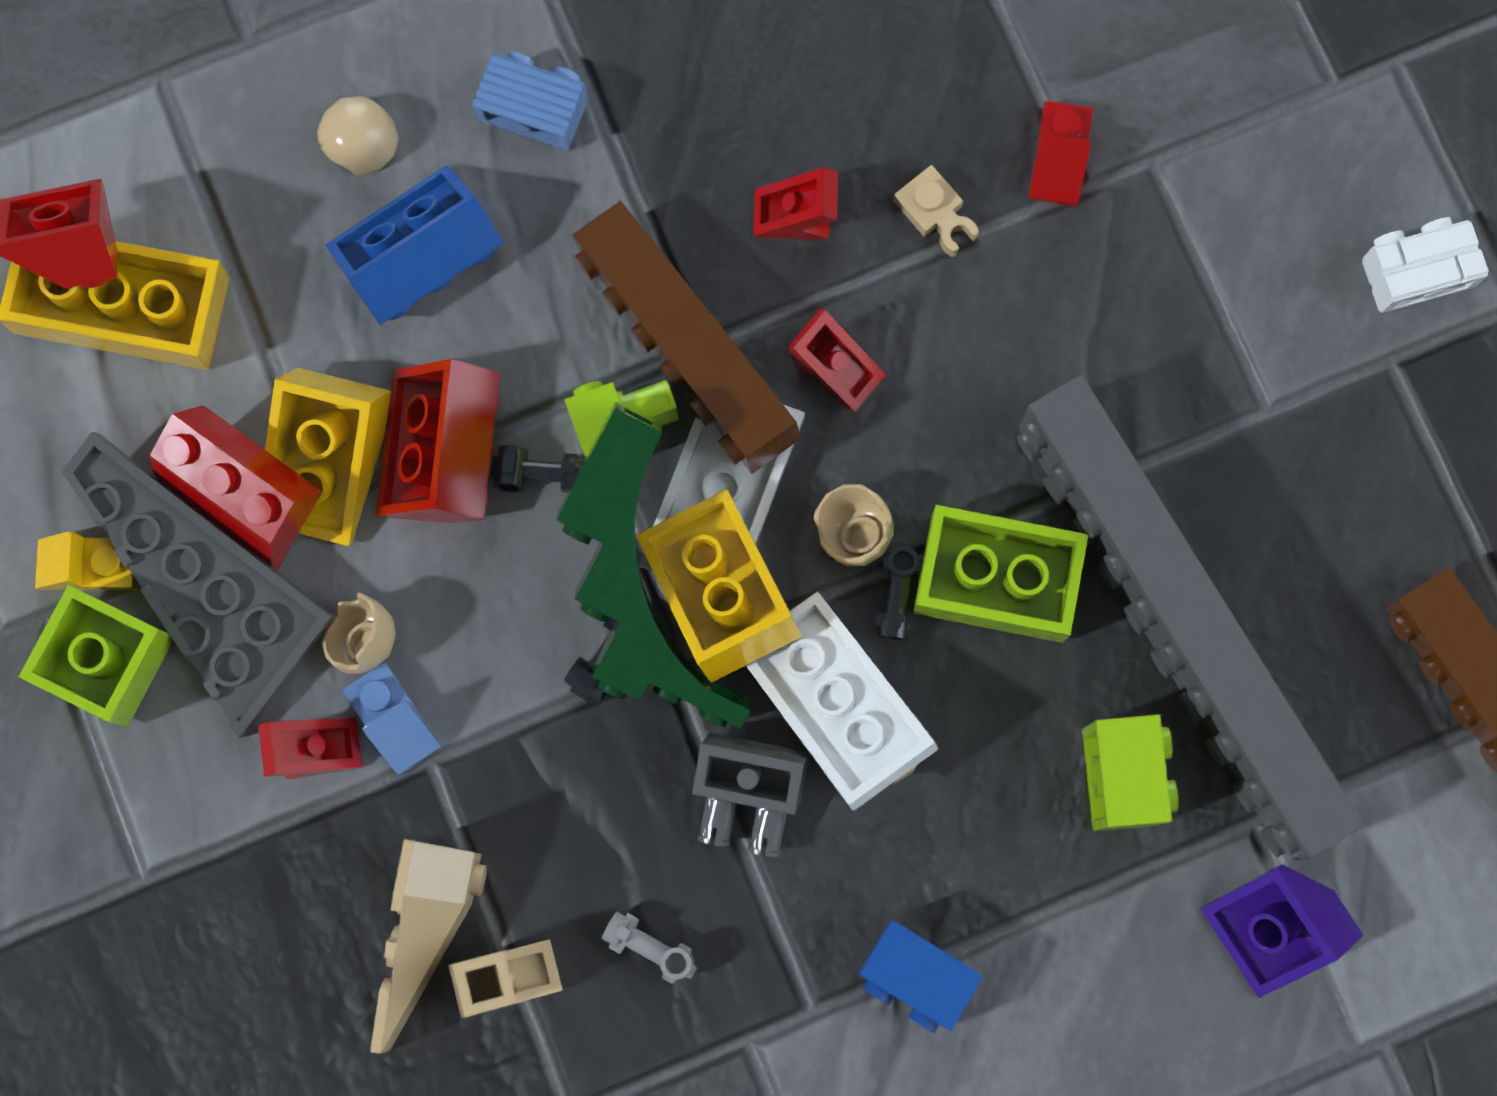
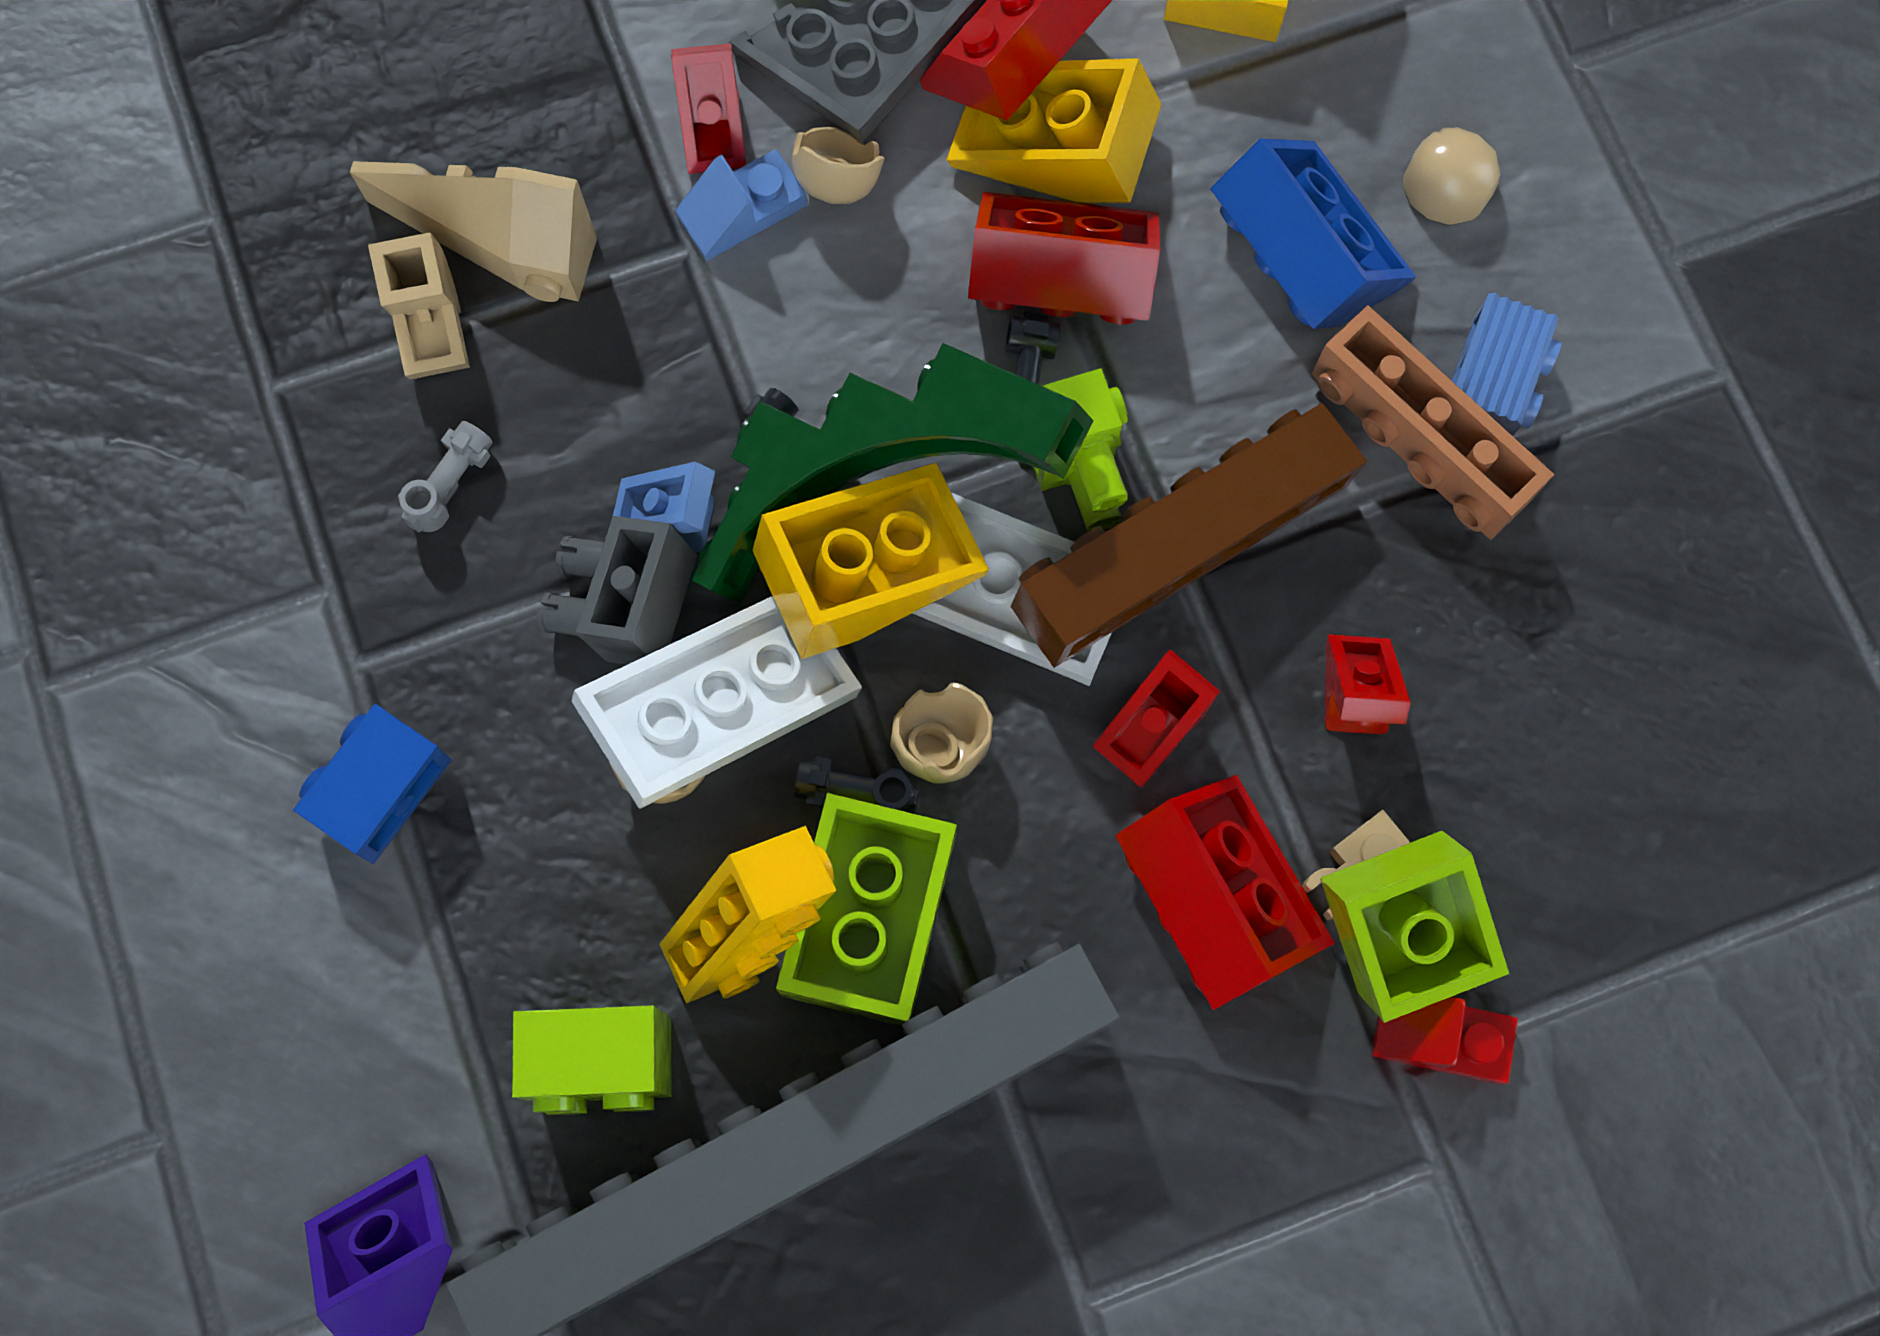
camera: 85 degrees right, 5 degrees down
(585, 153) = (1429, 423): none -> nougat brick
(672, 759) = (671, 496): none -> medium blue slope
(965, 310) = (1223, 889): none -> red slope
(988, 169) = (1415, 925): none -> lime brick
(1026, 650) = (748, 915): none -> yellow brick

